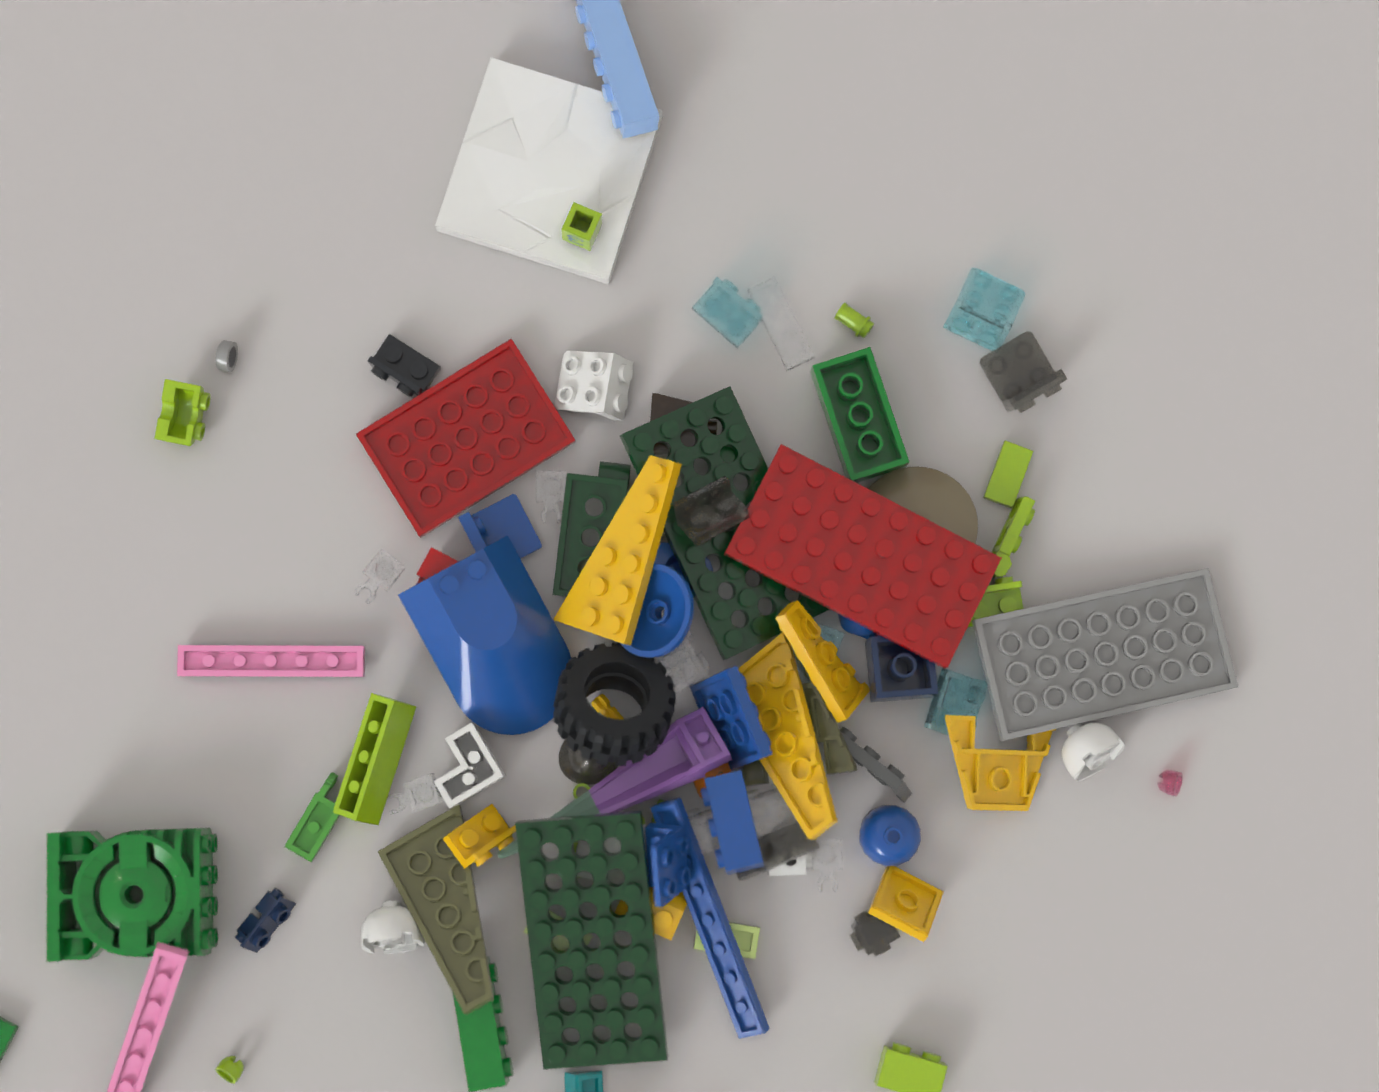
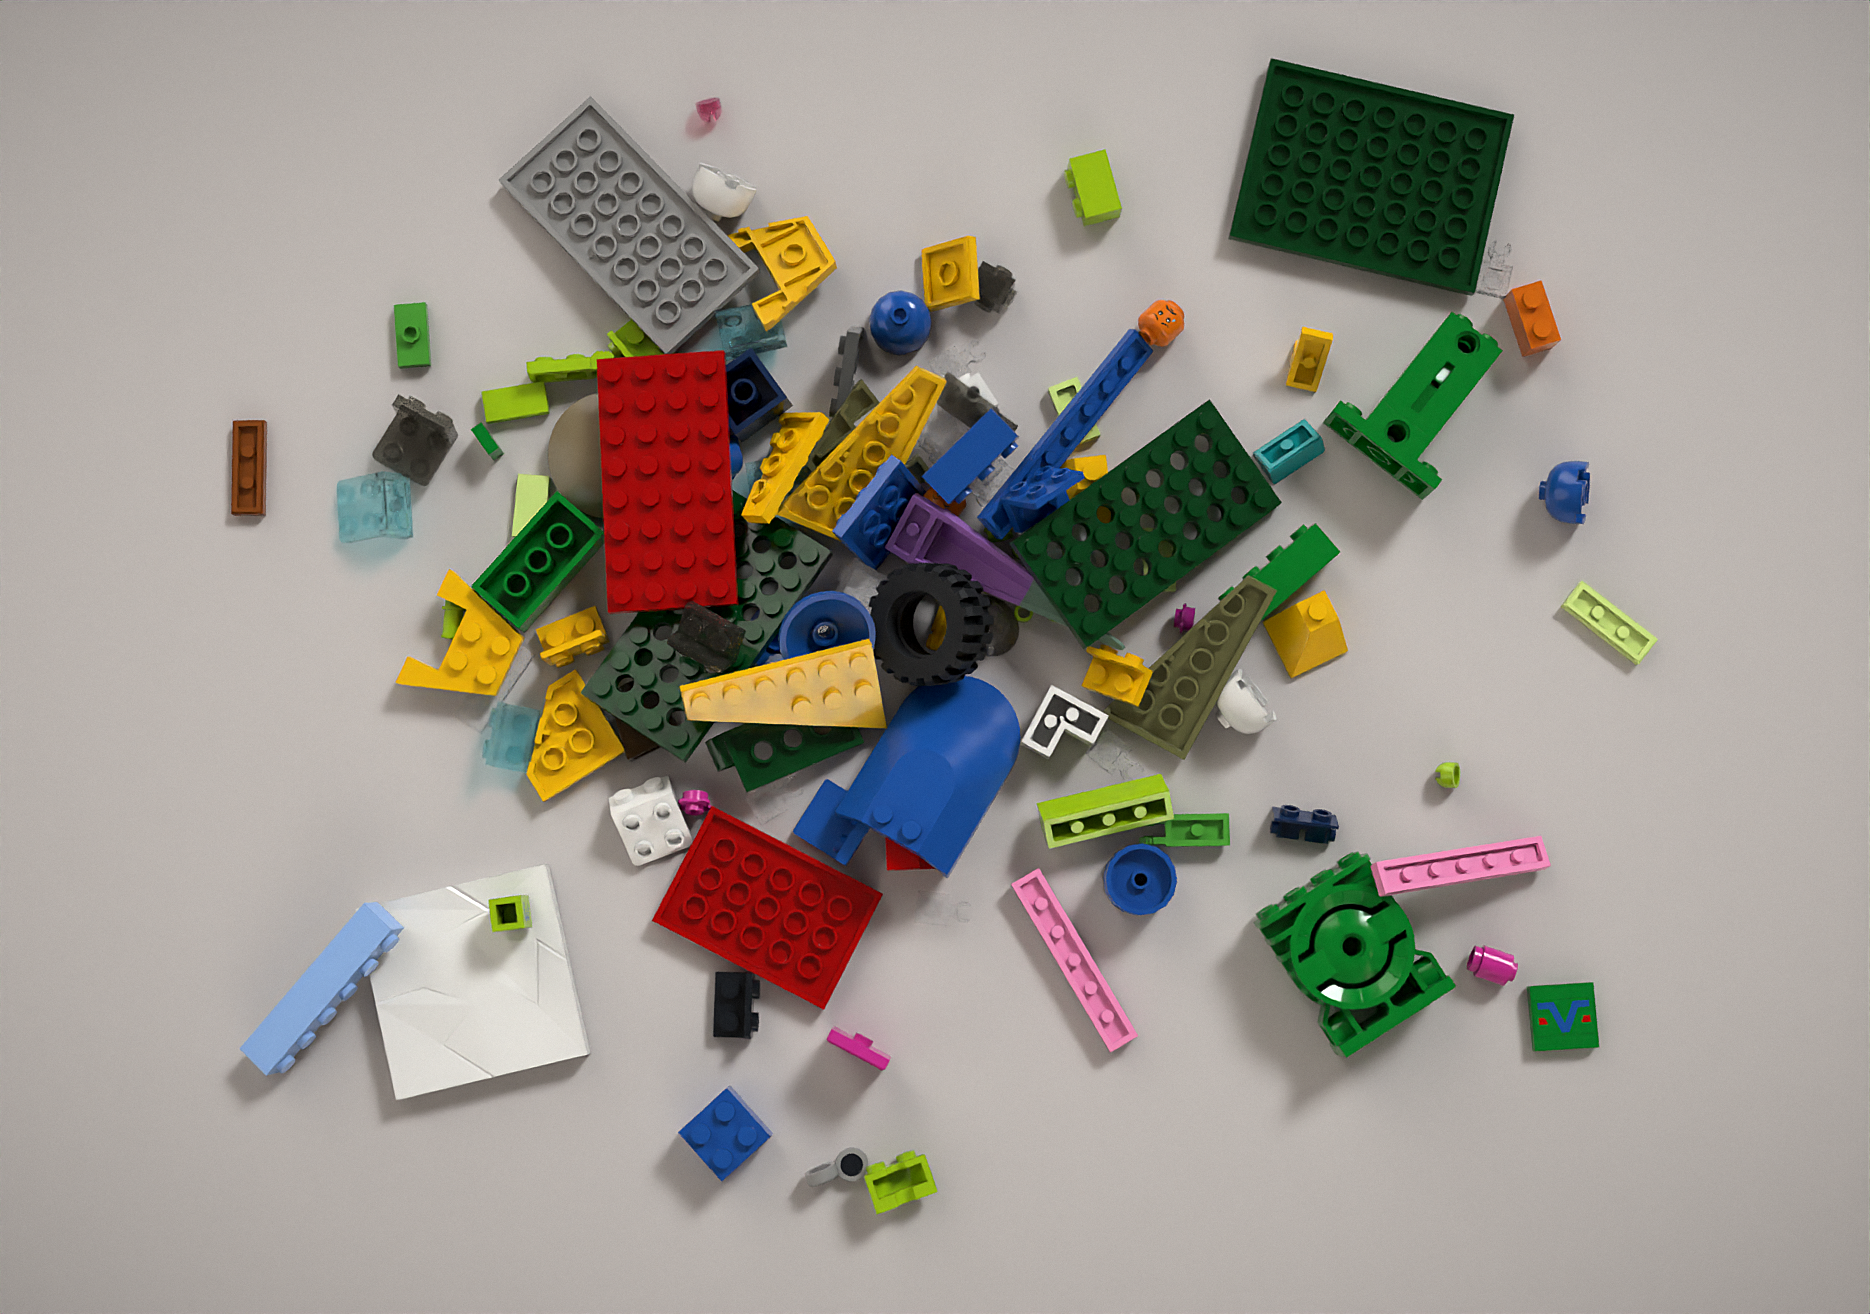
camera: 115 degrees left, 0 degrees up
(52, 1007) = (1492, 965): none -> dark pink brick
(220, 385) = (851, 1164): none -> tile
(282, 754) = (1120, 883): none -> blue wheel
(305, 298) = (725, 1133): none -> blue brick
(305, 442) = (859, 1046): none -> dark pink plate
(420, 1021) = (1306, 634): none -> yellow slope
(495, 924) = (1184, 618): none -> magenta plate
(586, 428) = (694, 802): none -> dark pink plate
(699, 358) = (570, 738): none -> yellow plate
(758, 1060) = (1161, 323): none -> orange head
(784, 408) = (572, 637): none -> yellow bracket
(814, 325) = (479, 651): none -> yellow wing
(917, 439) = (531, 496): none -> yellowish green tile
(987, 431) = (487, 441): none -> green tile
(1078, 228) = (249, 468): none -> dark orange tile
(1114, 422) = (412, 335): none -> bright green plate

